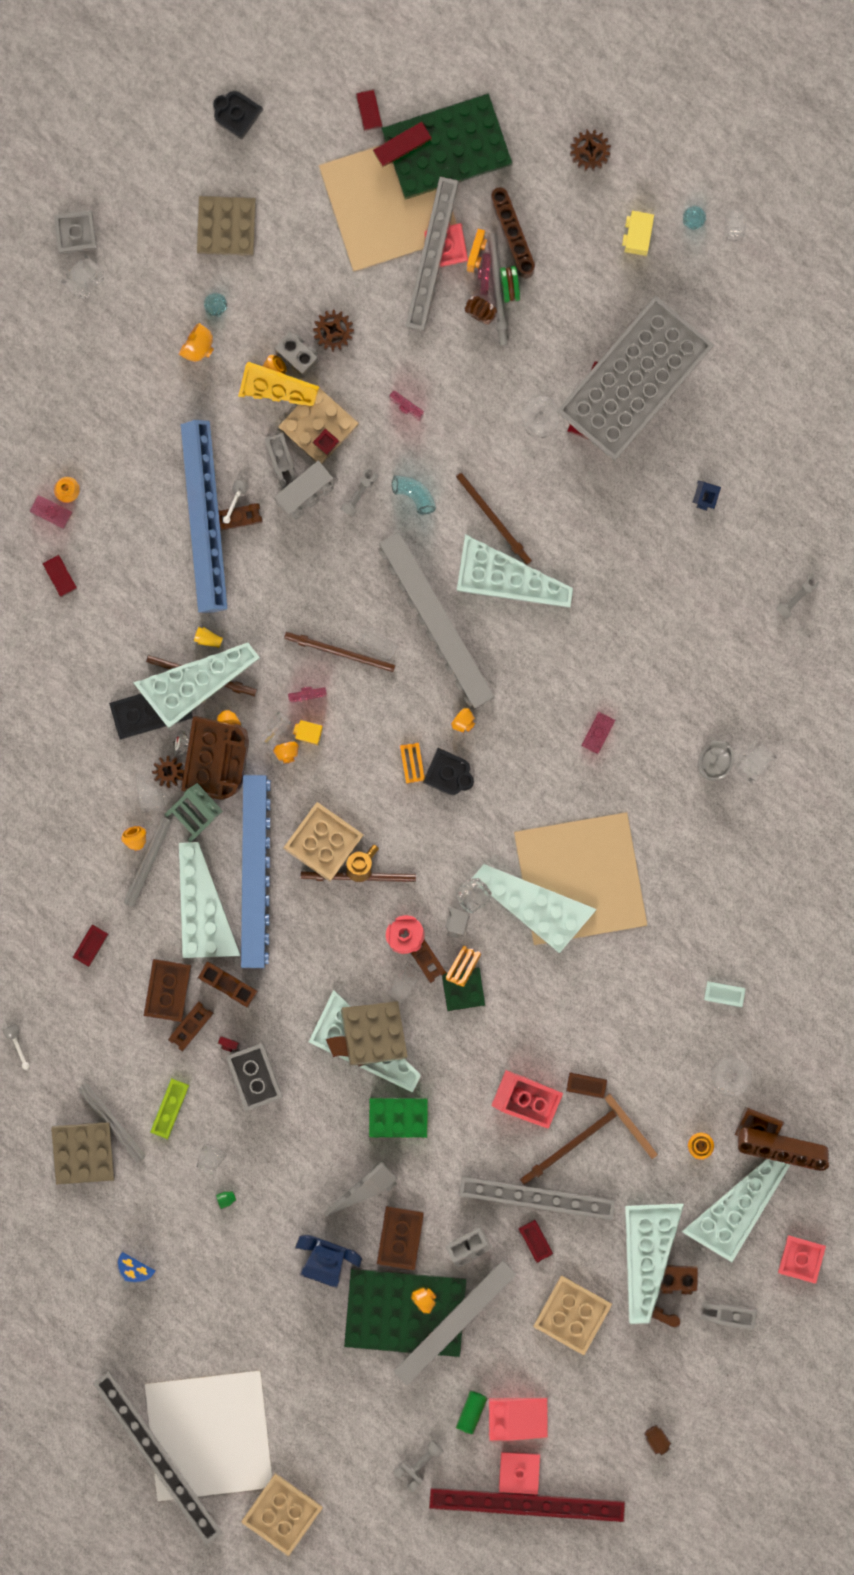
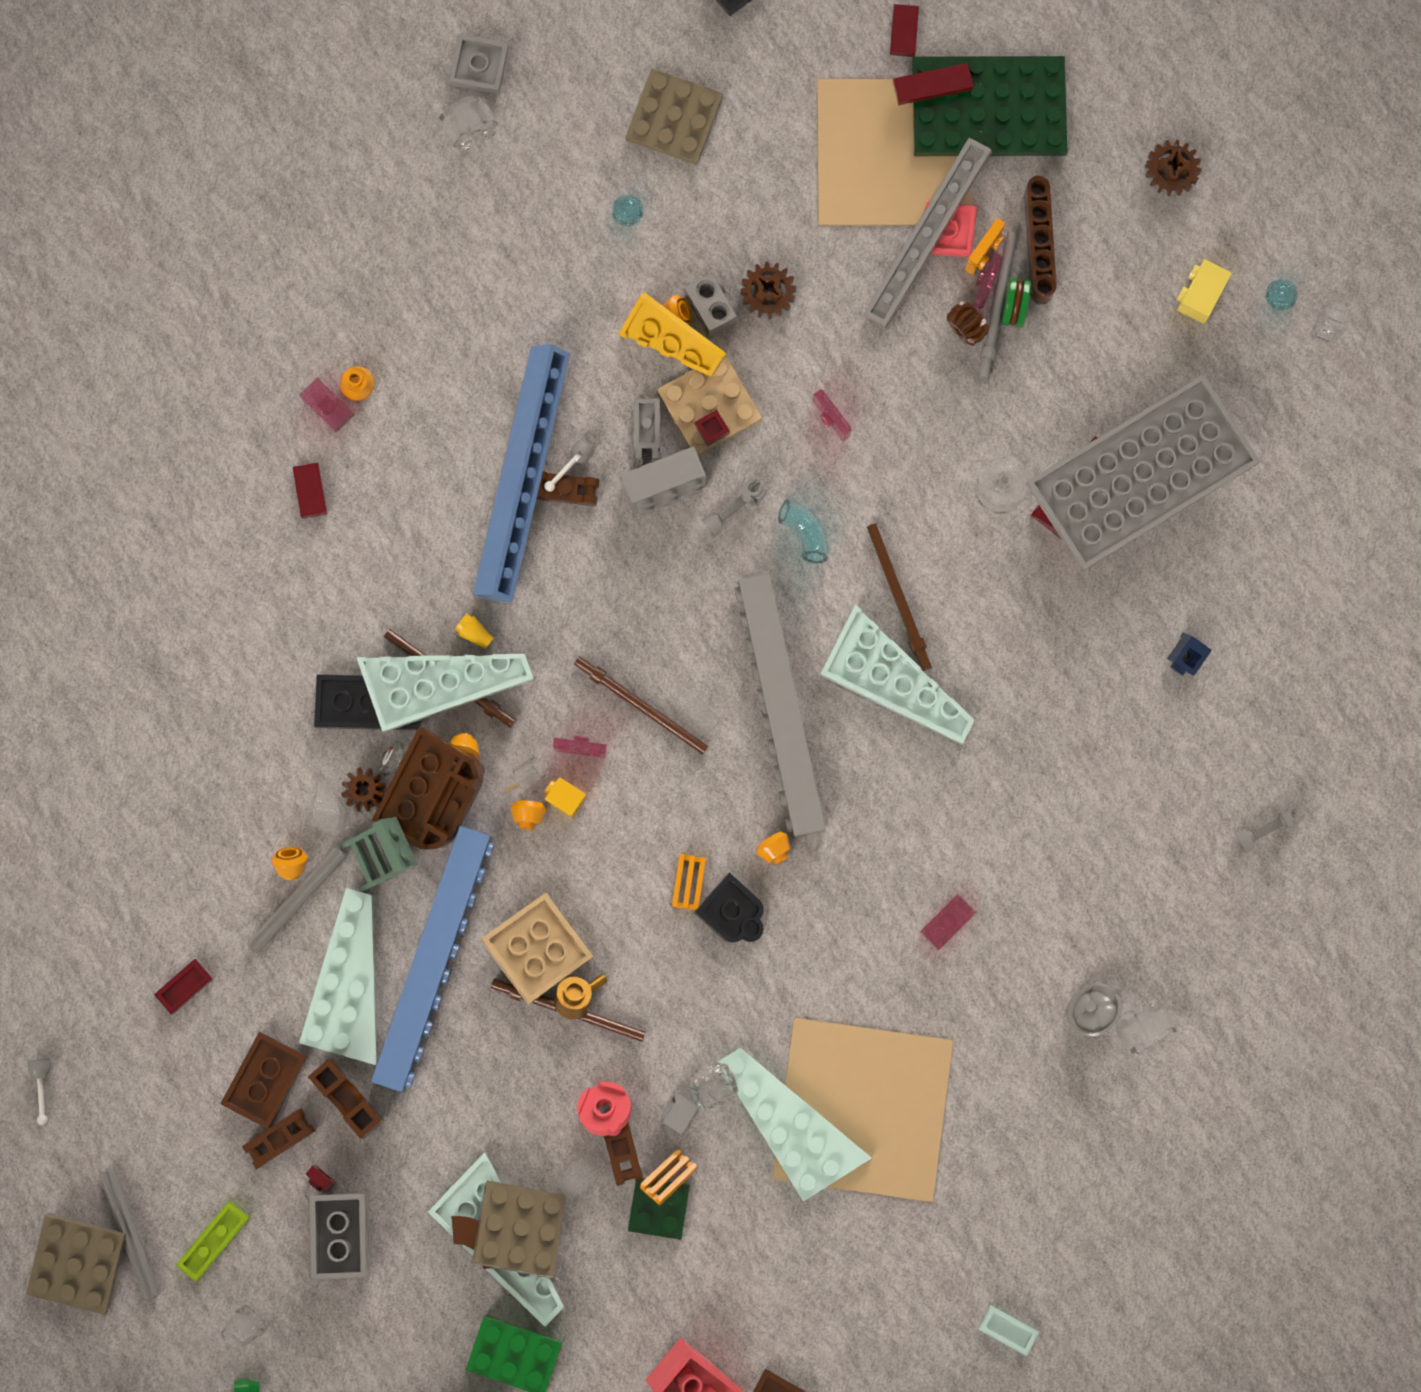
camera: 10 degrees right, 5 degrees down
(198, 344) = (588, 252): light orange cylinder -> none

